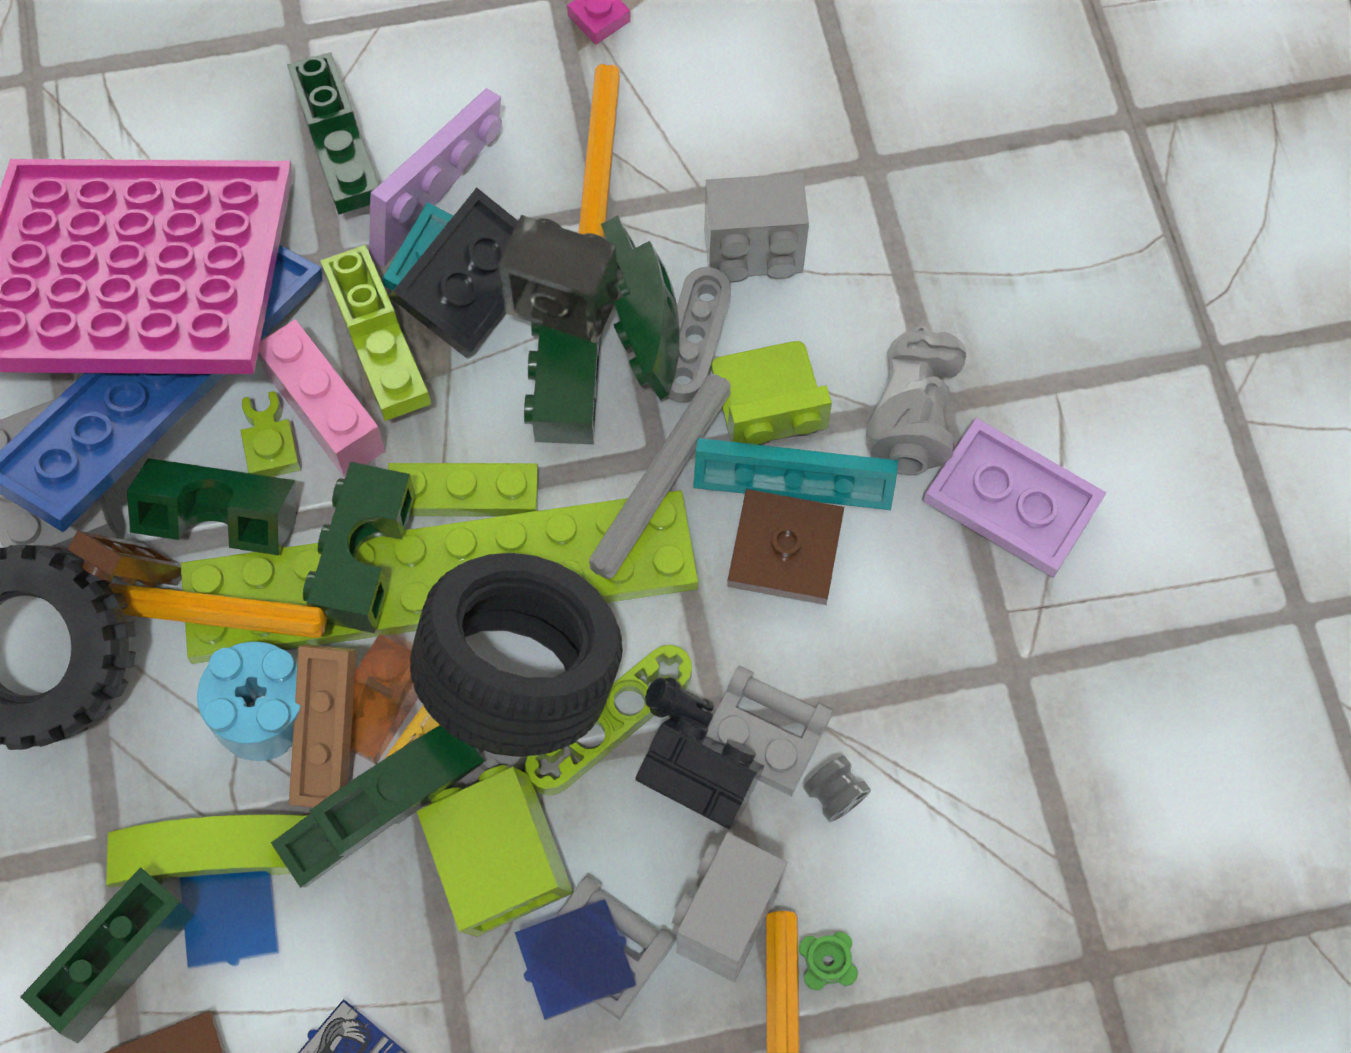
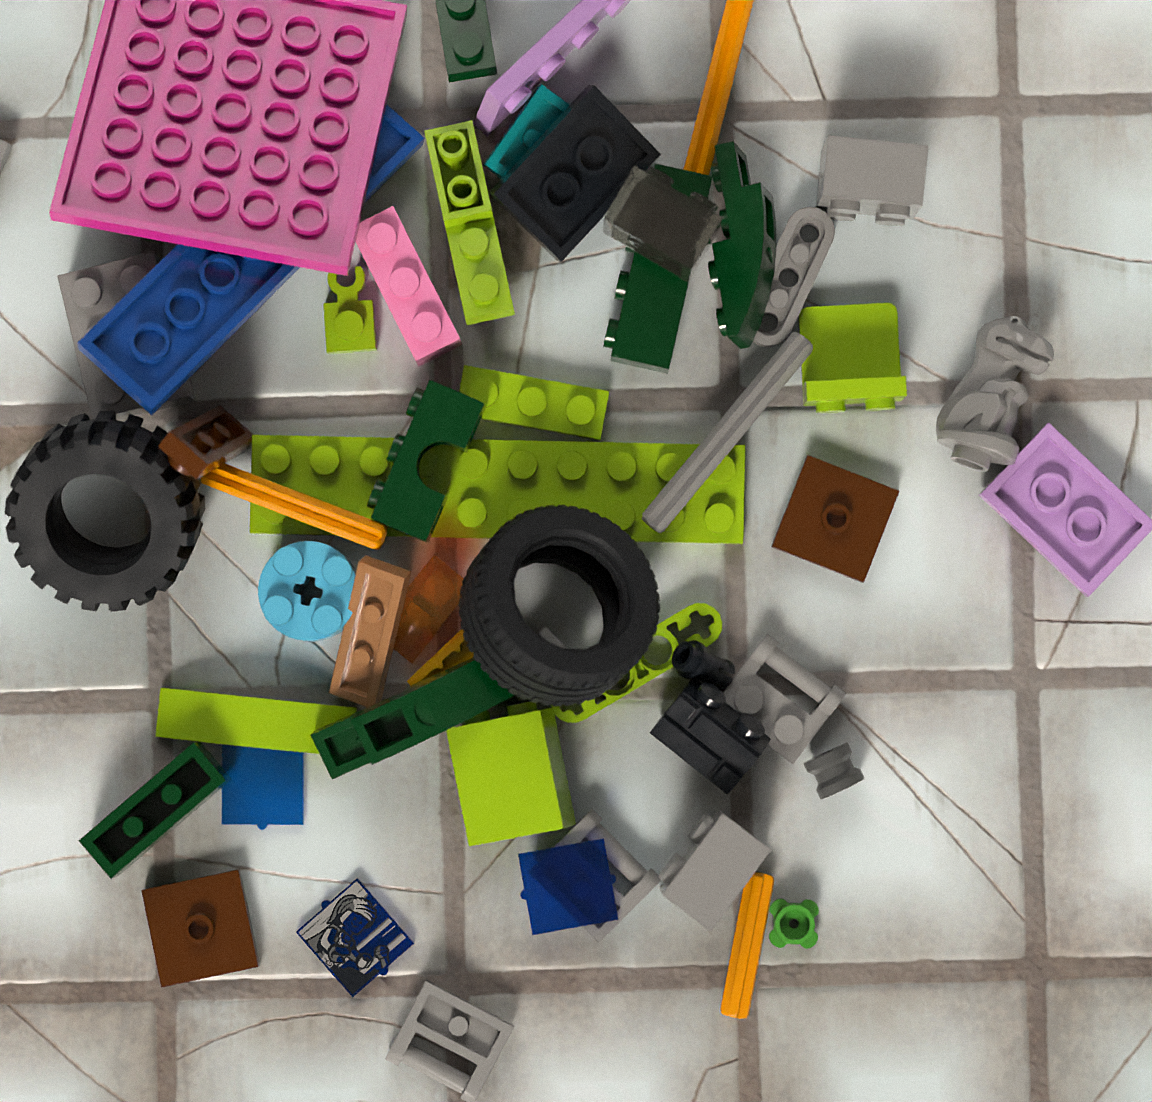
camera: 15 degrees right, 20 degrees up
(175, 495) = (257, 367): dark green arch -> none
(795, 473) = (858, 450): teal plate -> none

